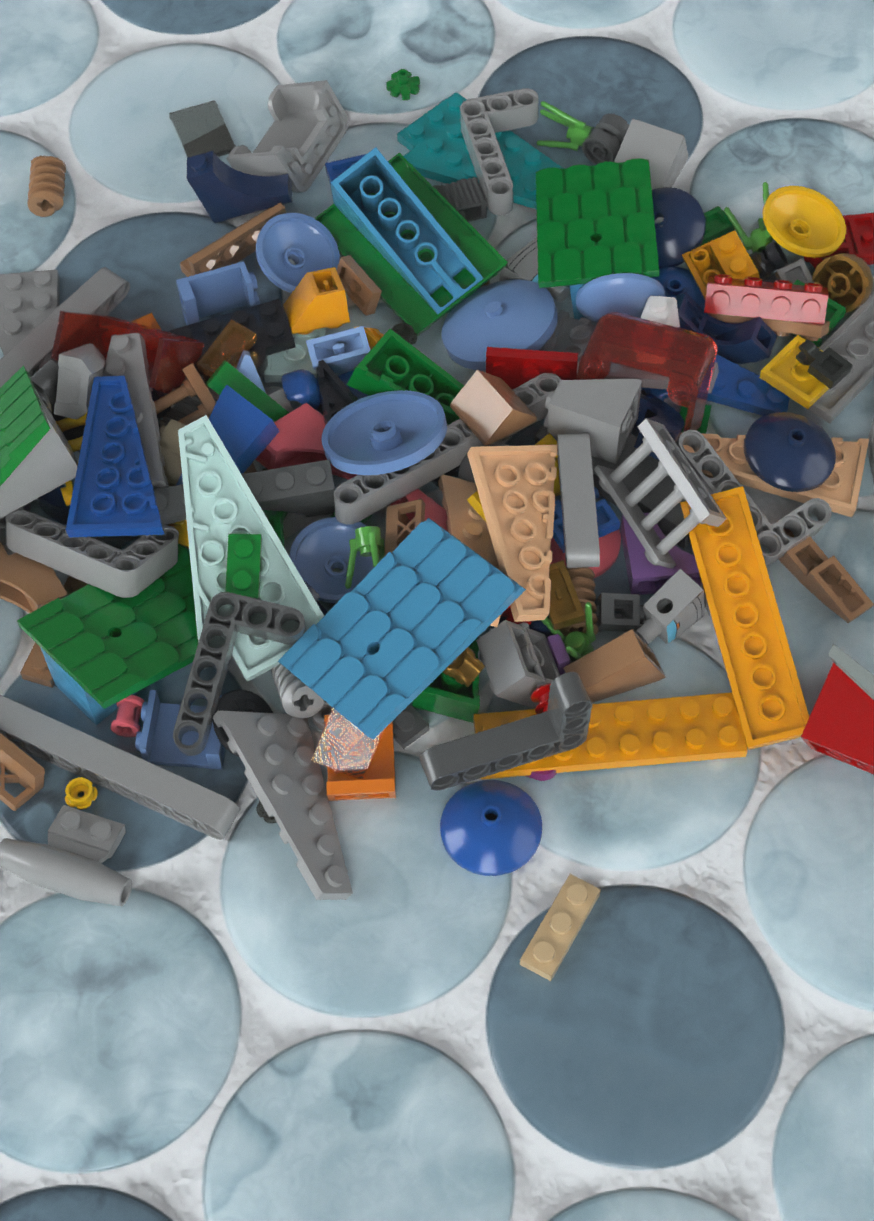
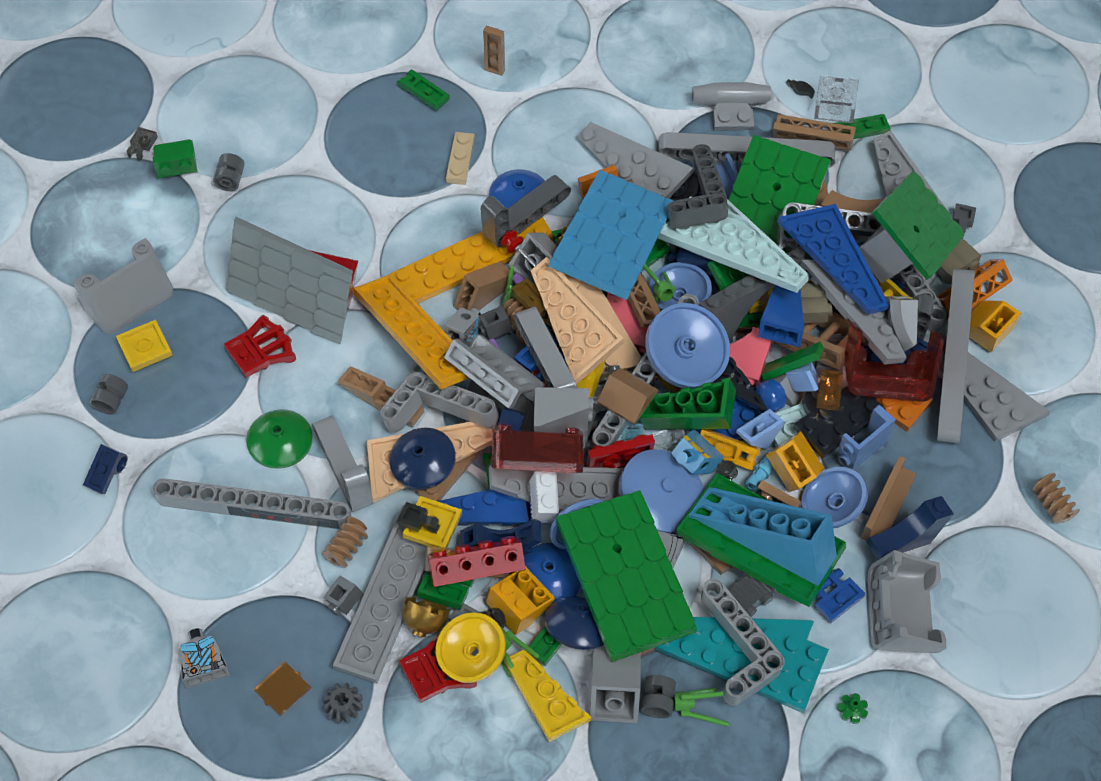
camera: 155 degrees right, 0 degrees up
(77, 786) = (749, 131): yellow plate -> none
(202, 130) = (981, 603): clear smoke piece -> none
(244, 564) = (723, 231): green plate -> none
(376, 311) = (760, 472): none -> medium azure pin
(424, 1083) = (494, 50): none -> medium nougat plate
(441, 341) = (697, 454): none -> dark azure torso
(574, 1089) = (423, 89): none -> green plate
(730, 180) = (545, 697): none -> yellow wing

